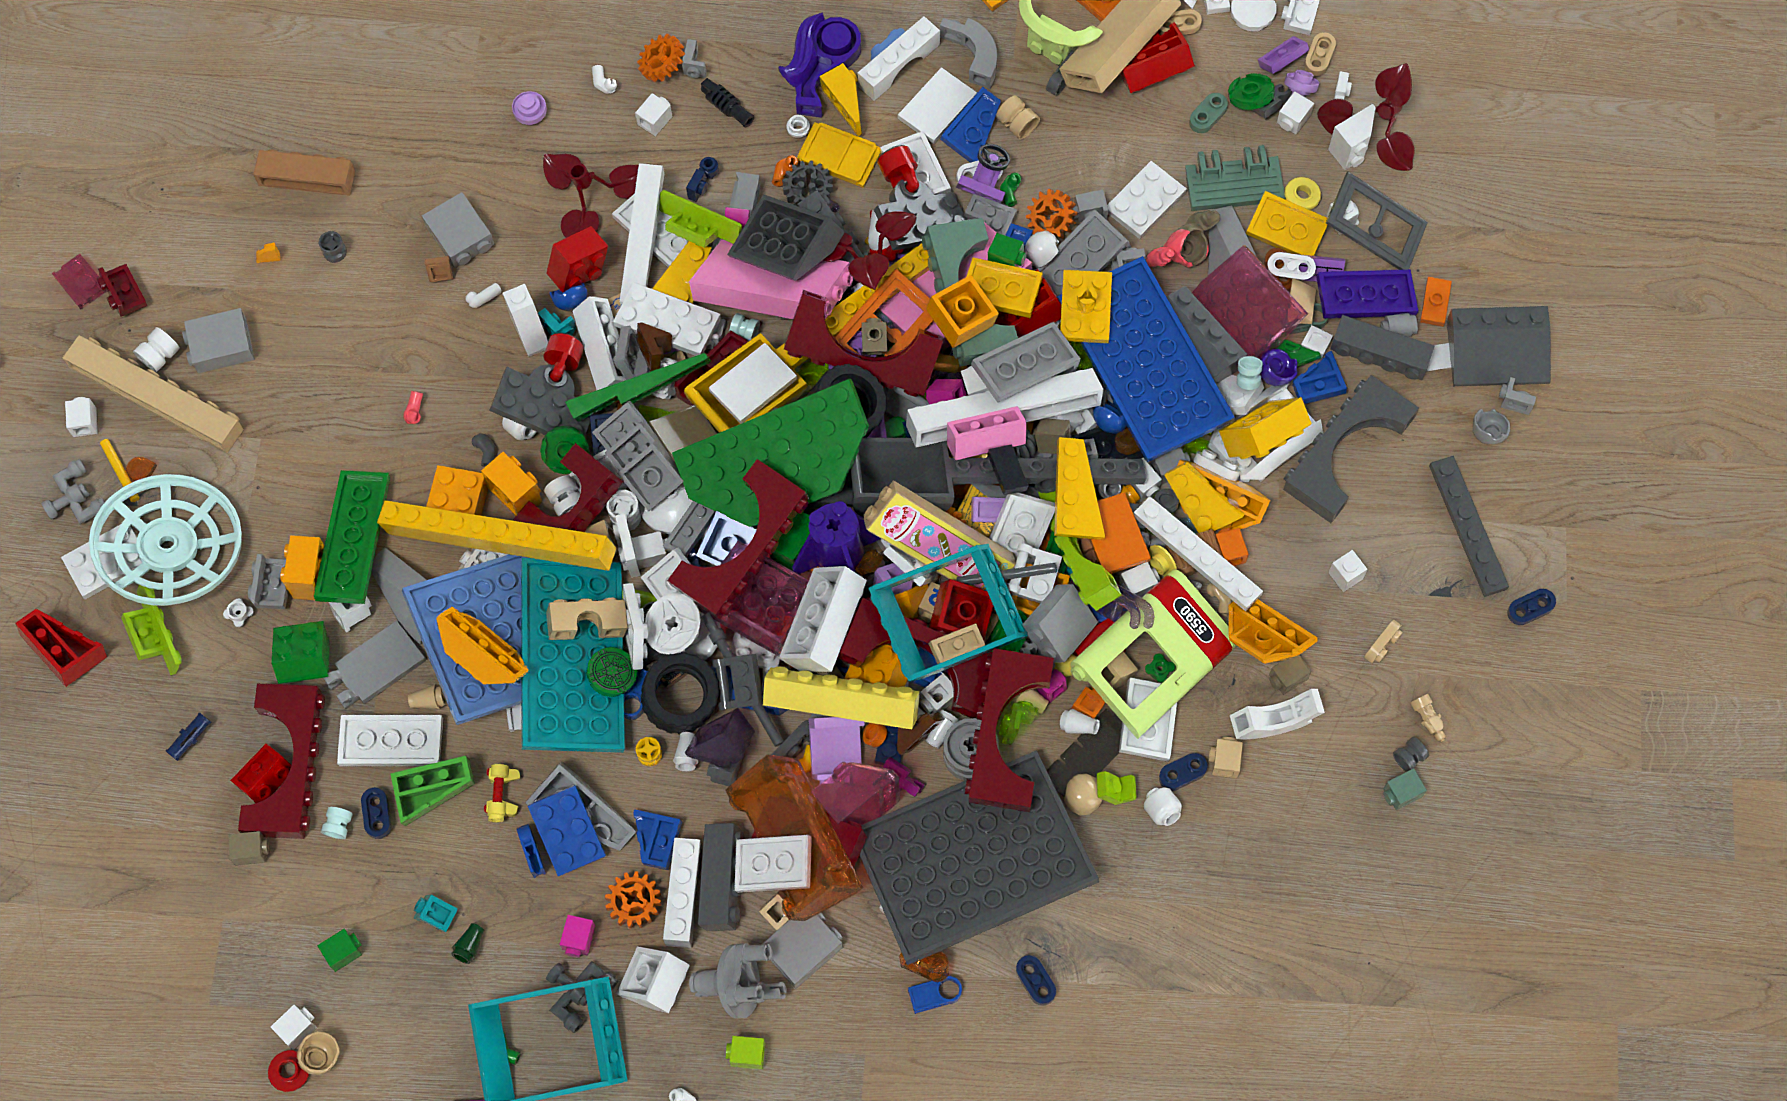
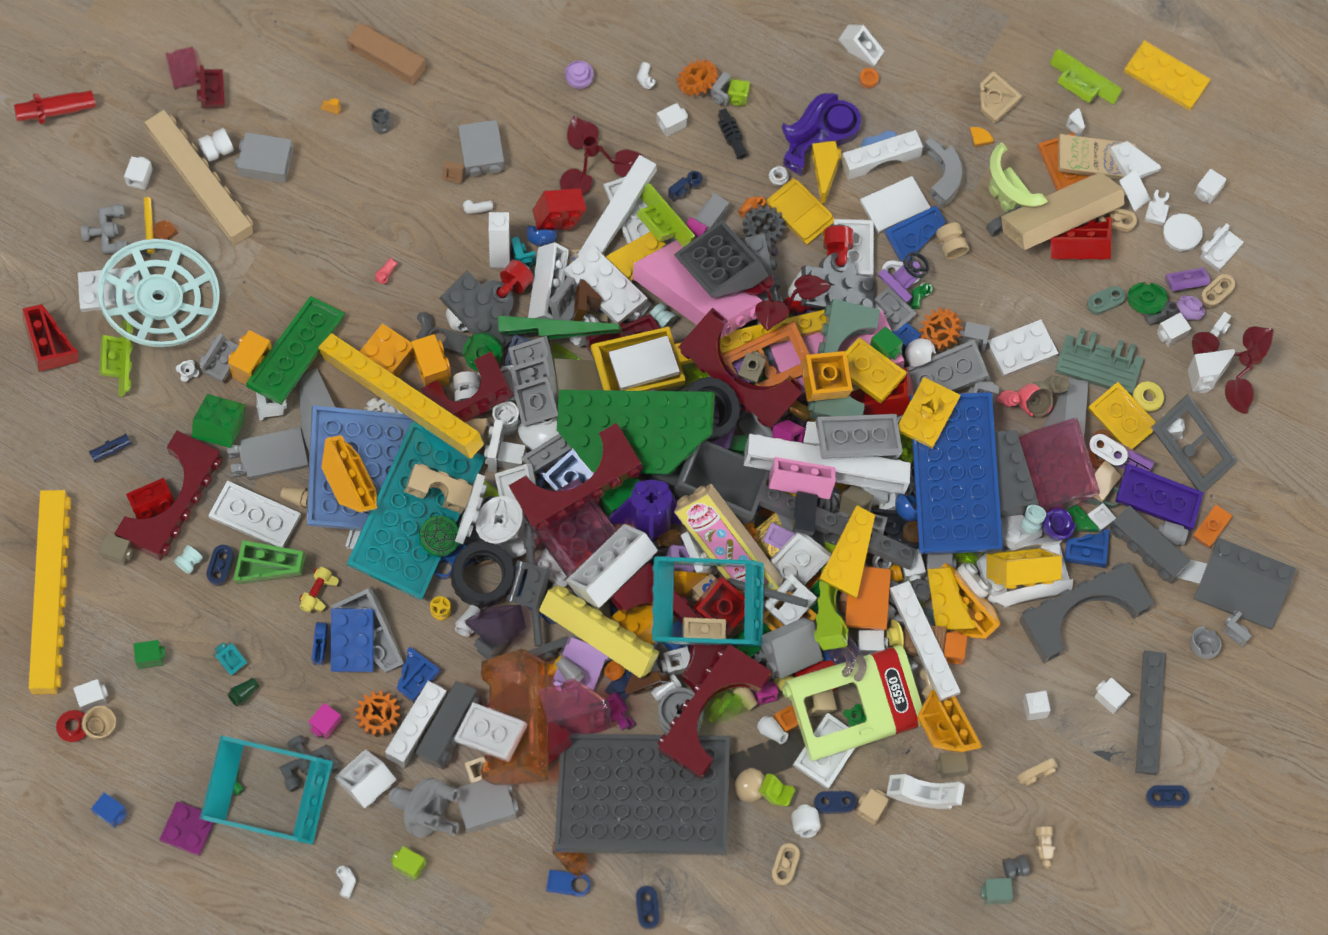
camera: 20 degrees right, 0 degrees up
(192, 931) = (48, 592): none -> yellow brick
(525, 452) = (454, 341): none -> dark grey piece
(712, 56) = (738, 92): none -> lime bracket
(827, 756) = (569, 669): none -> light grey cone
(1163, 865) = (785, 865): none -> tan plate
(1420, 525) = (1111, 695): none -> white brick

